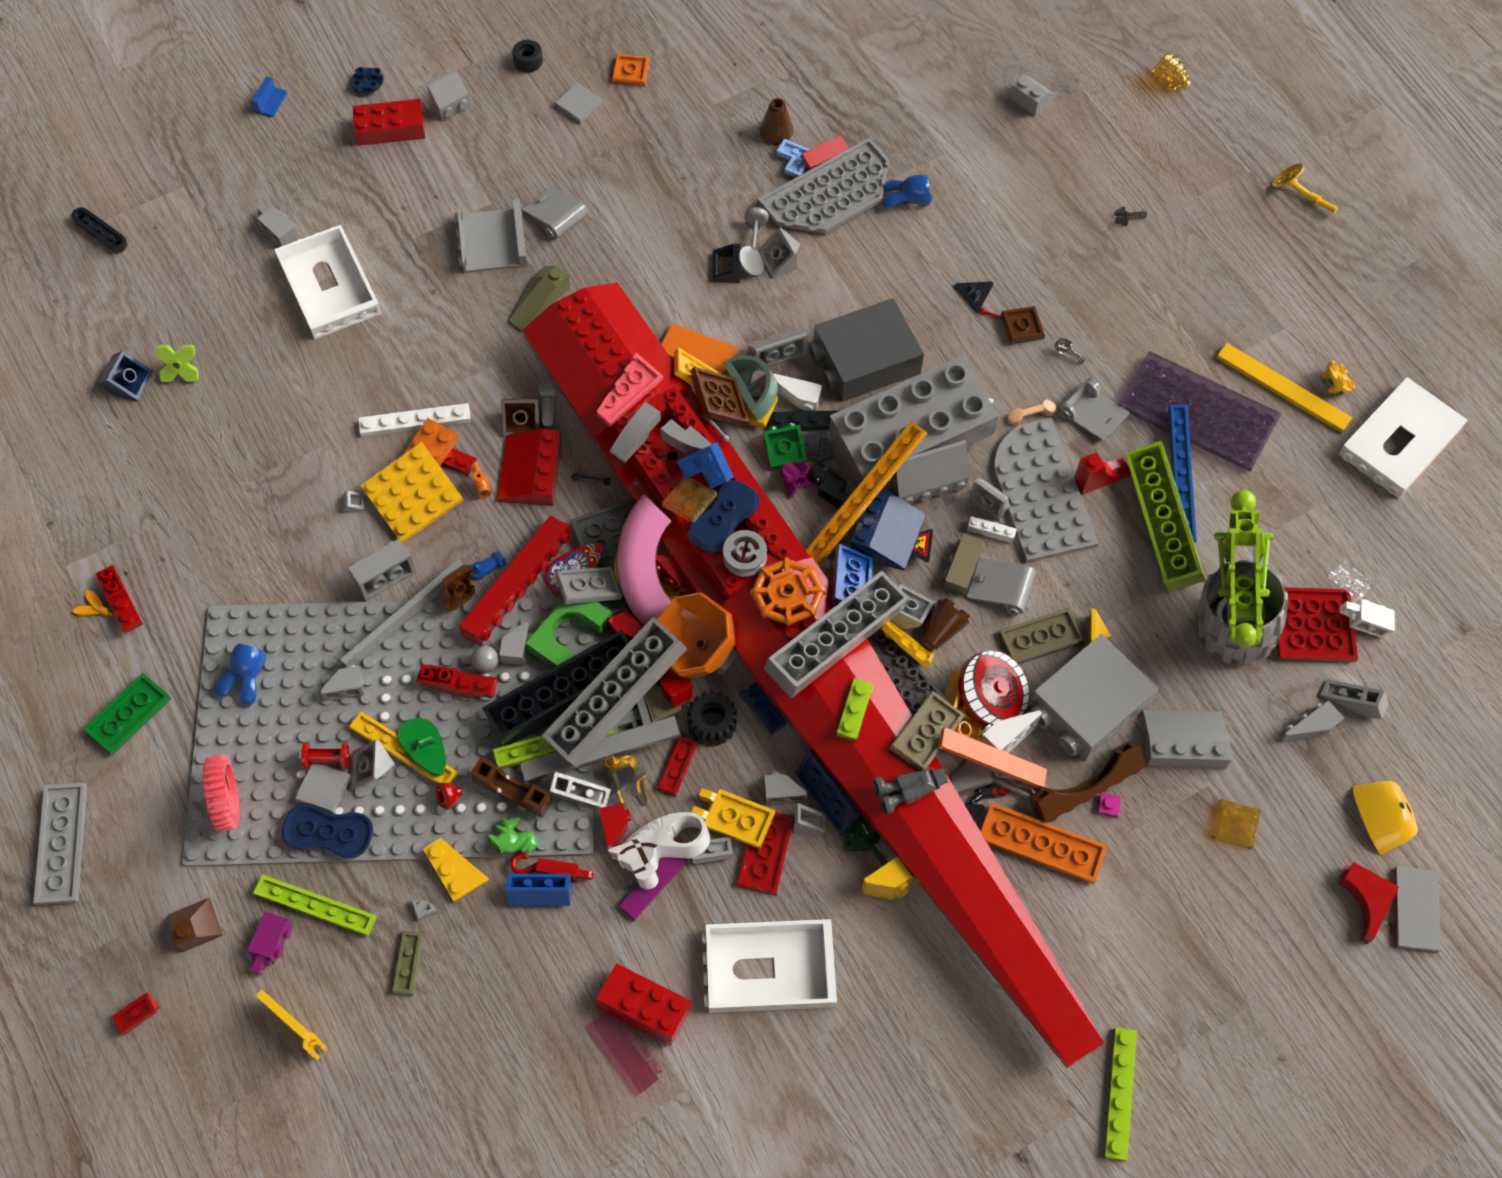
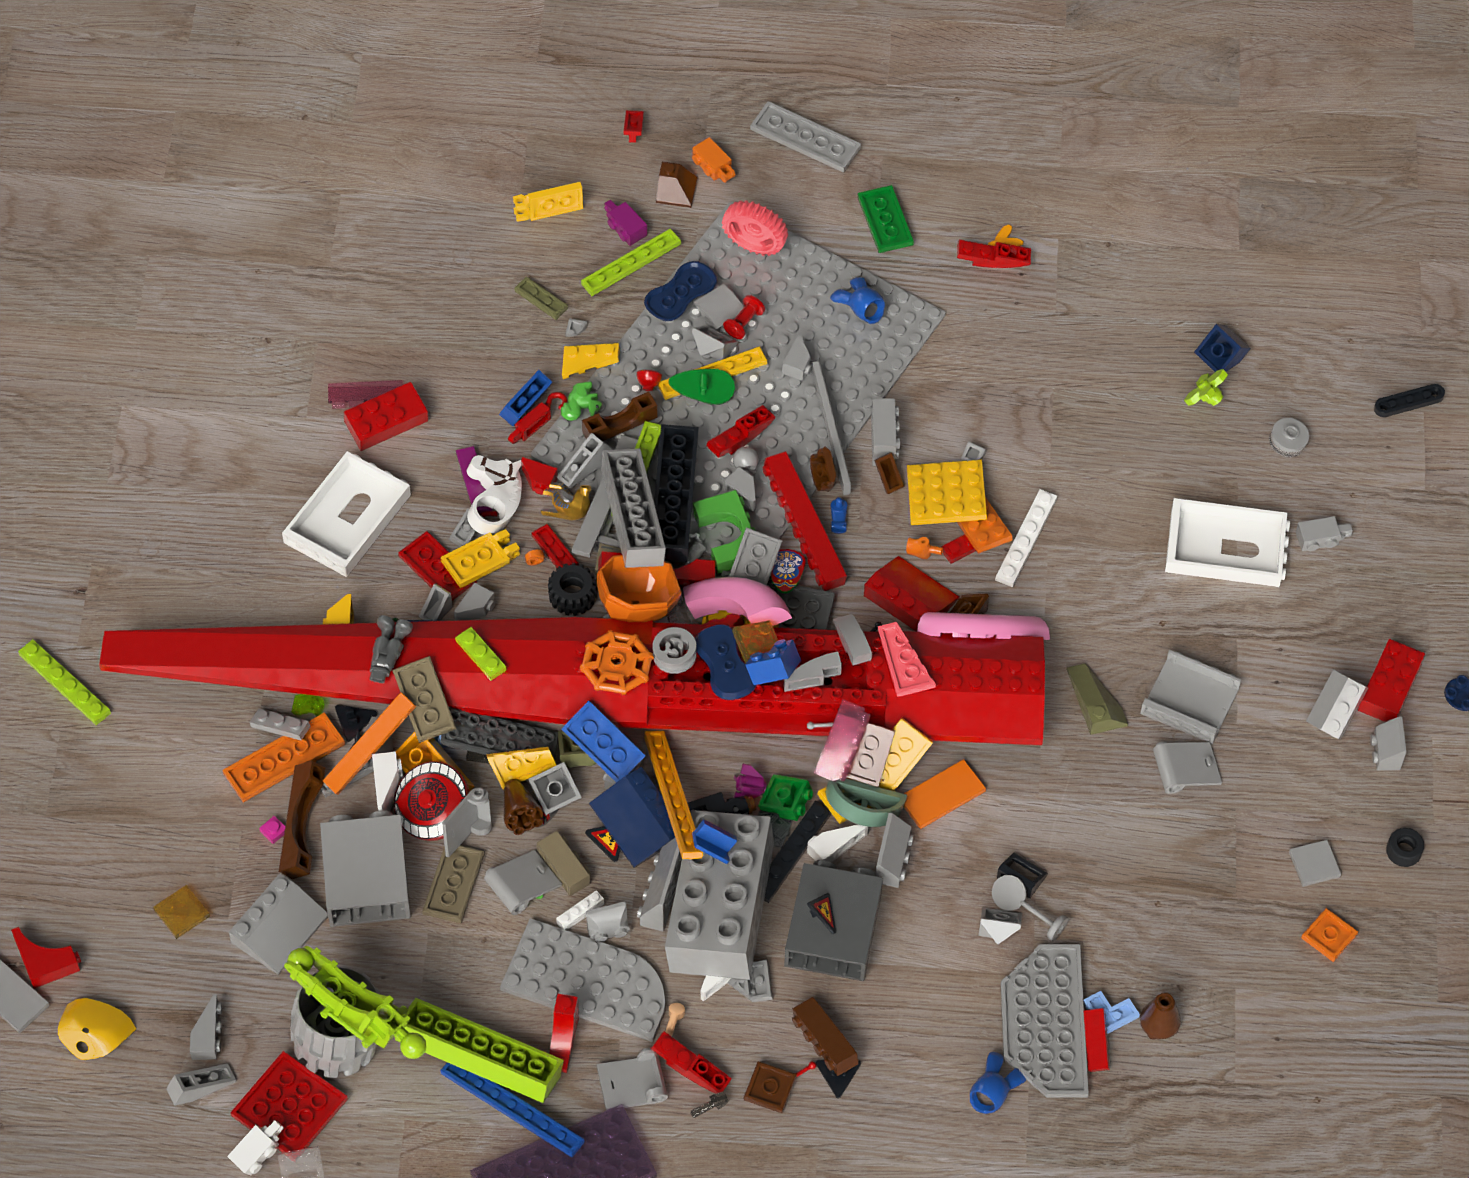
camera: 125 degrees right, 5 degrees down
(141, 907) = (713, 160): none -> orange brick
(191, 289) = (1289, 437): none -> light grey piece
(420, 546) = (889, 473): none -> reddish brown slope
(438, 135) = (1337, 704): none -> light grey slope
(540, 379) = (982, 625): none -> bright pink brick
(700, 772) = (534, 557): none -> orange tile
(727, 401) = (841, 736): none -> clear pink windscreen
(836, 634) = (550, 672): light grey brick -> none
(881, 338) = (822, 909): none -> piece
(897, 424) = (713, 840): none -> blue panel
(961, 305) = (824, 1036): none -> reddish brown brick
(976, 643) = (468, 817): none -> light grey door
(1018, 865) = (280, 724): none -> light grey plate
(1051, 378) = (690, 1065): none -> red slope
(1096, 626) = (423, 926): yellow slope -> none

